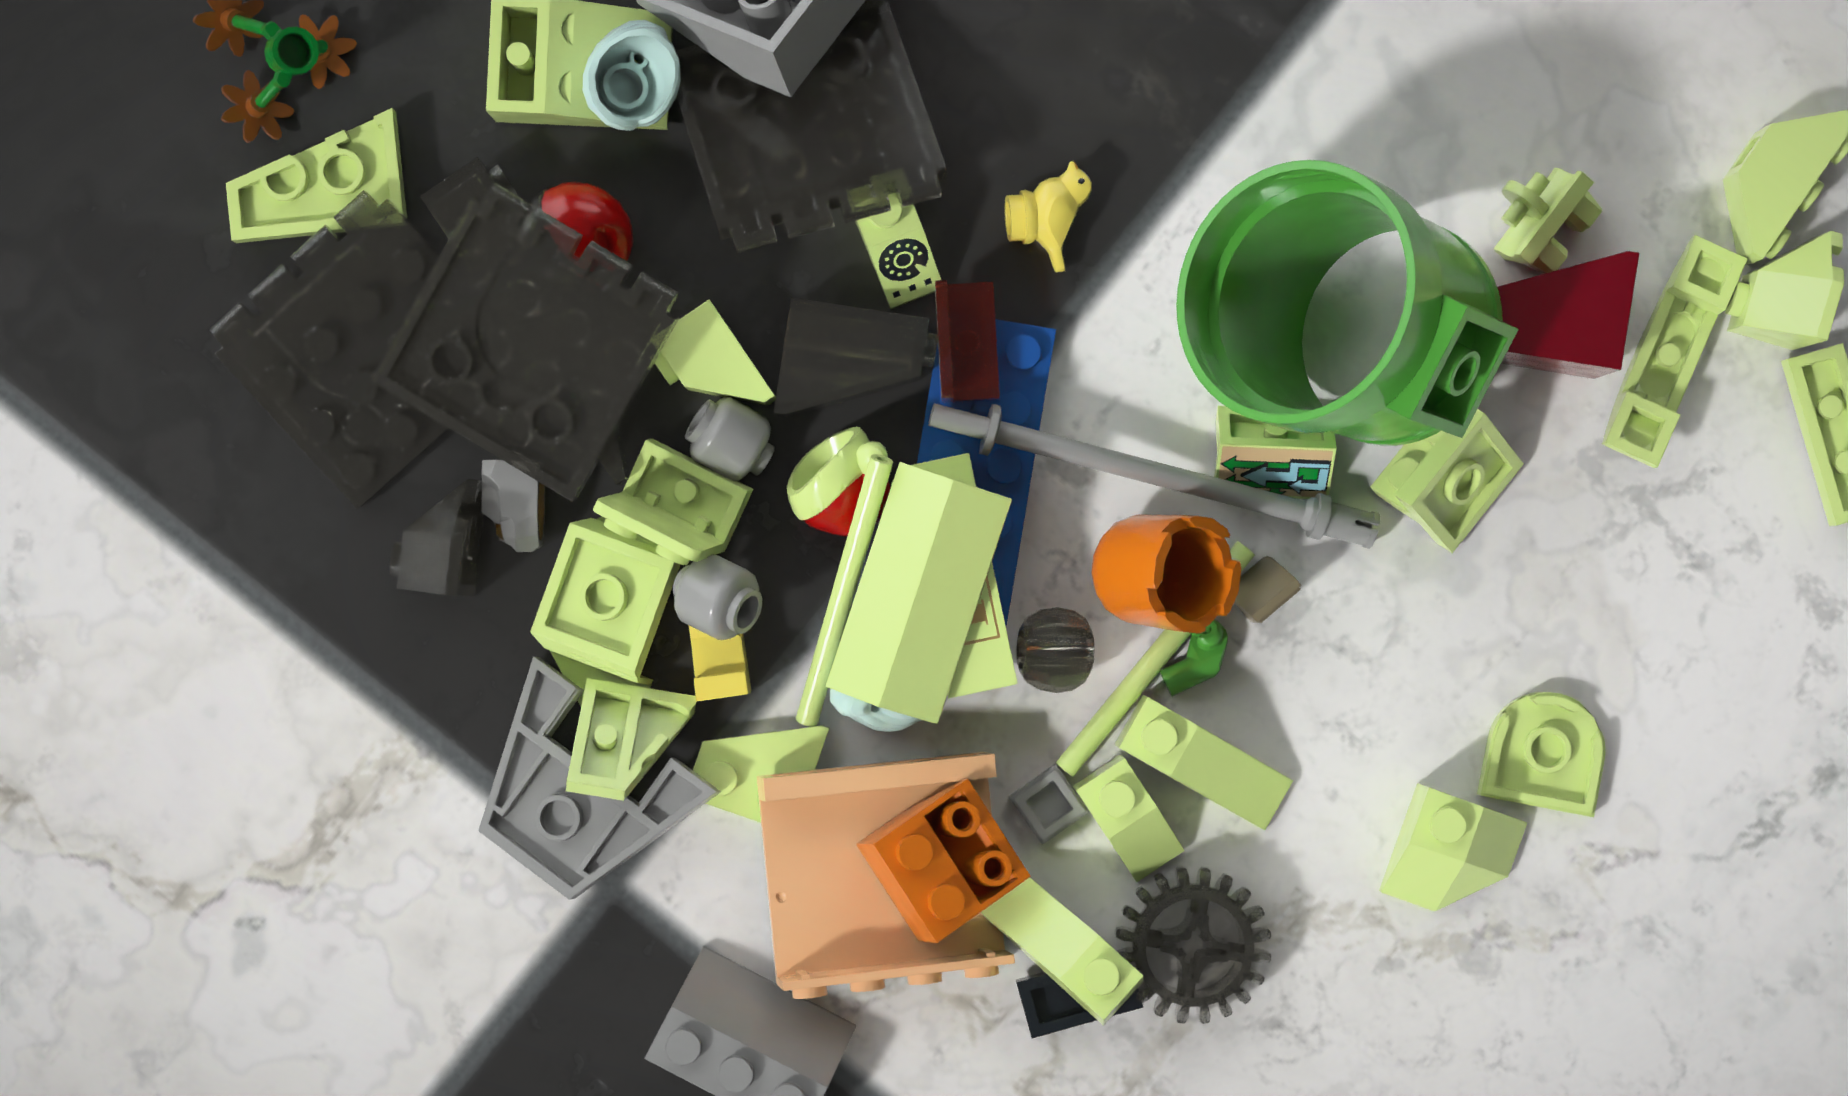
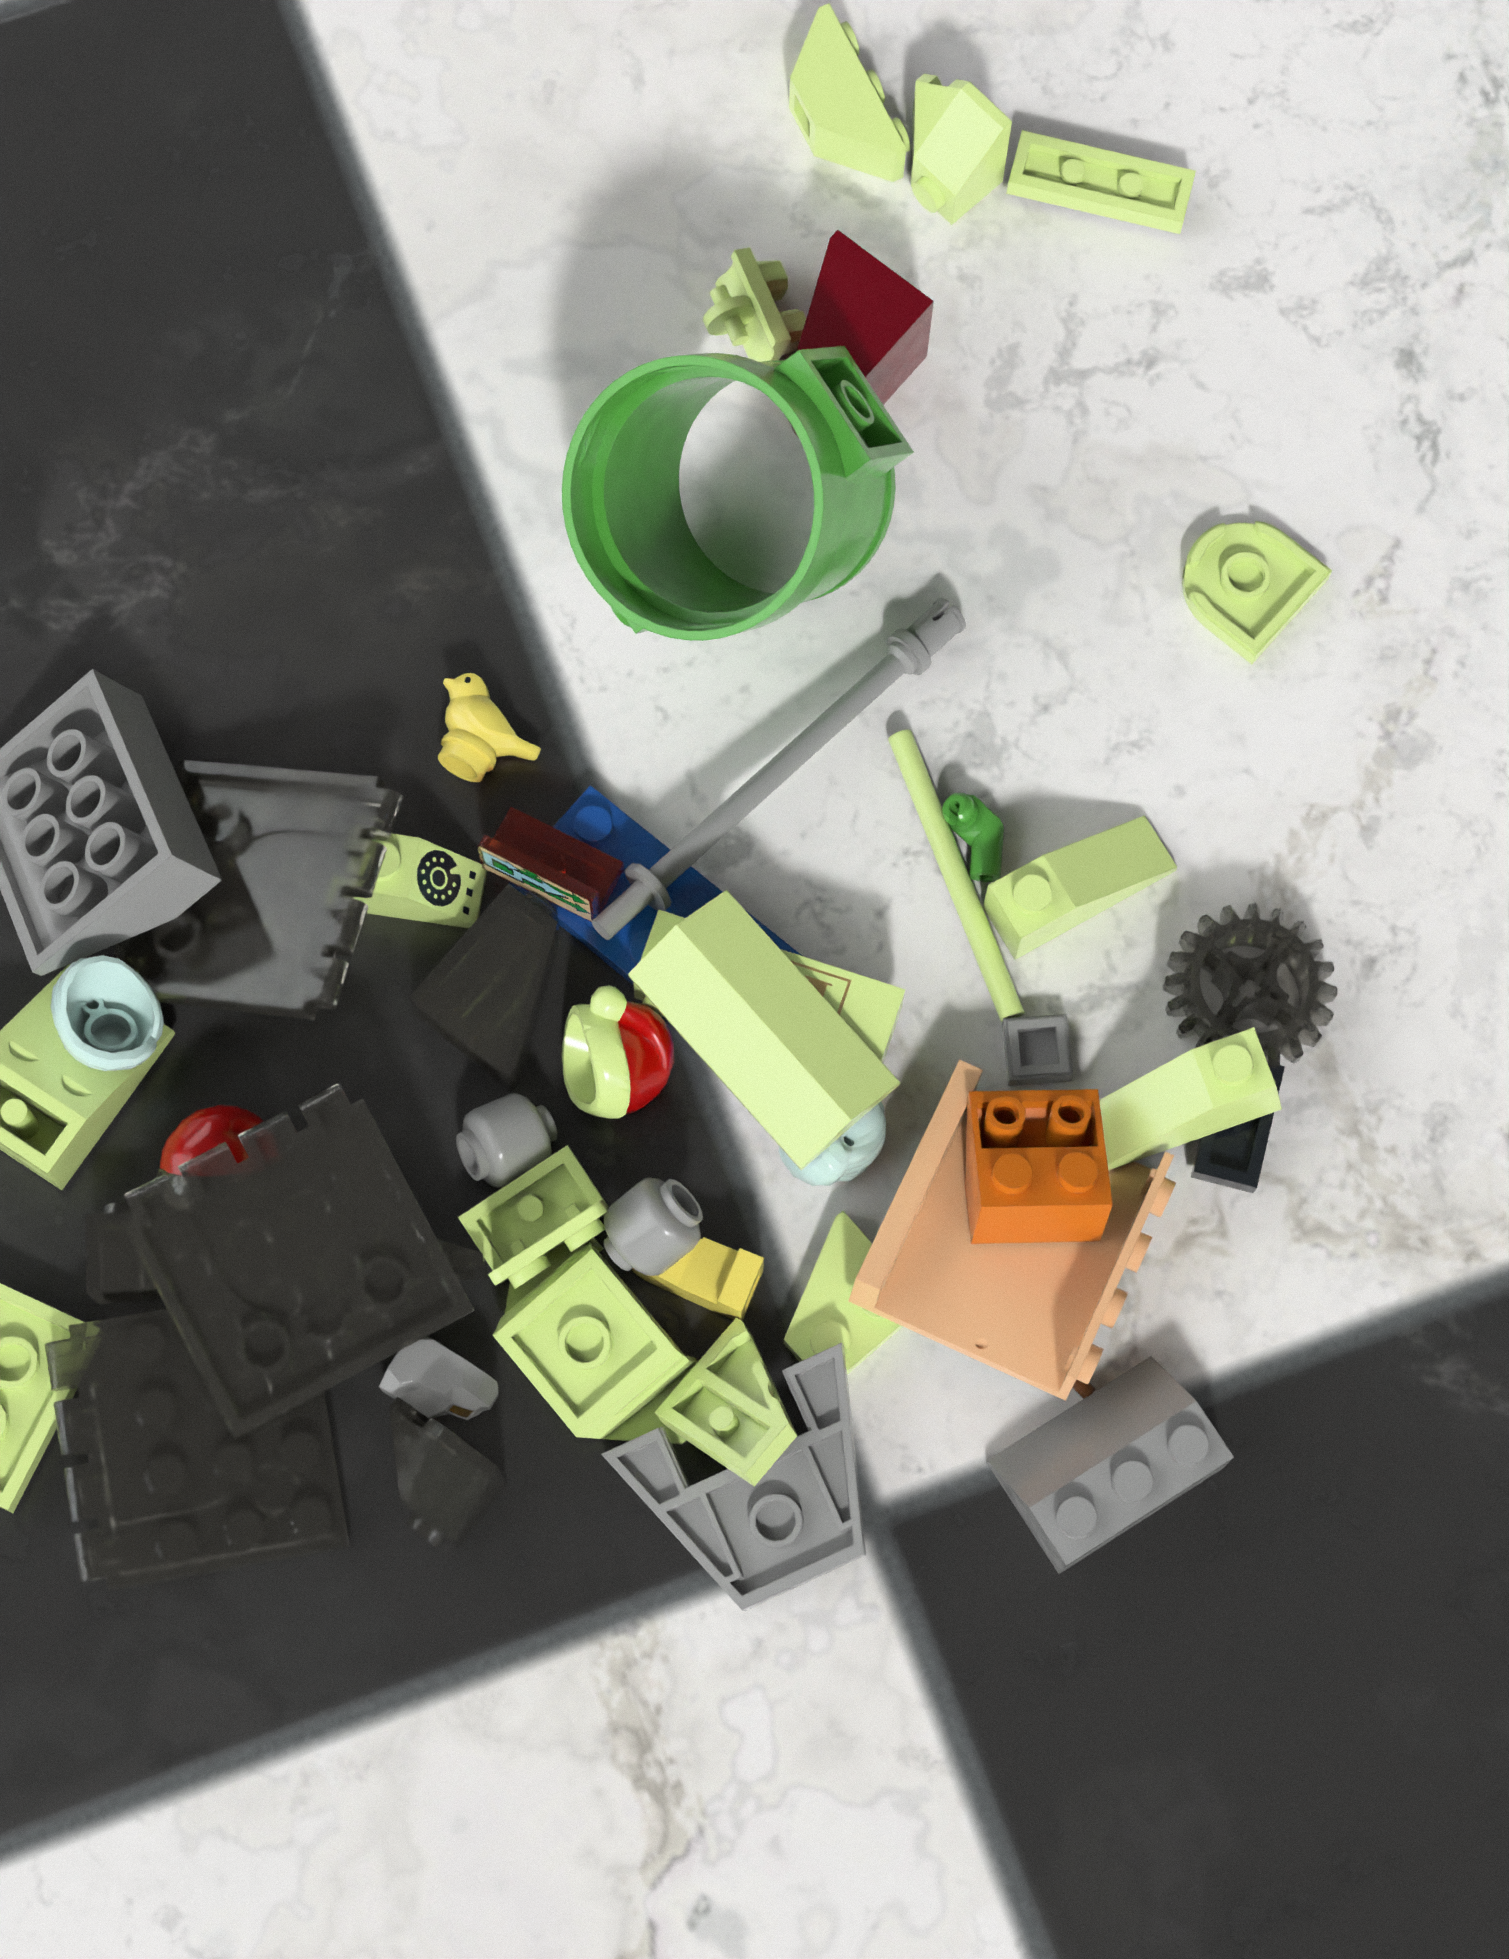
camera: 65 degrees left, 15 degrees down
(710, 359) = (424, 1109): yellowish green slope -> none
(844, 588) = (719, 1108): yellowish green piece -> none
(1055, 650) = (894, 947): clear smoke piece -> none
(1128, 817) = (1092, 978): yellowish green slope -> none
(1166, 571) = (878, 802): orange cylinder -> none
(1265, 589) = (949, 739): dark tan slope -> none
(1272, 456) = (823, 654): panel -> none
(1449, 479) = (941, 519): yellowish green bracket -> none
(1449, 850) = (1287, 712): yellowish green slope -> none
(1670, 350) = (915, 248): yellowish green slope -> none

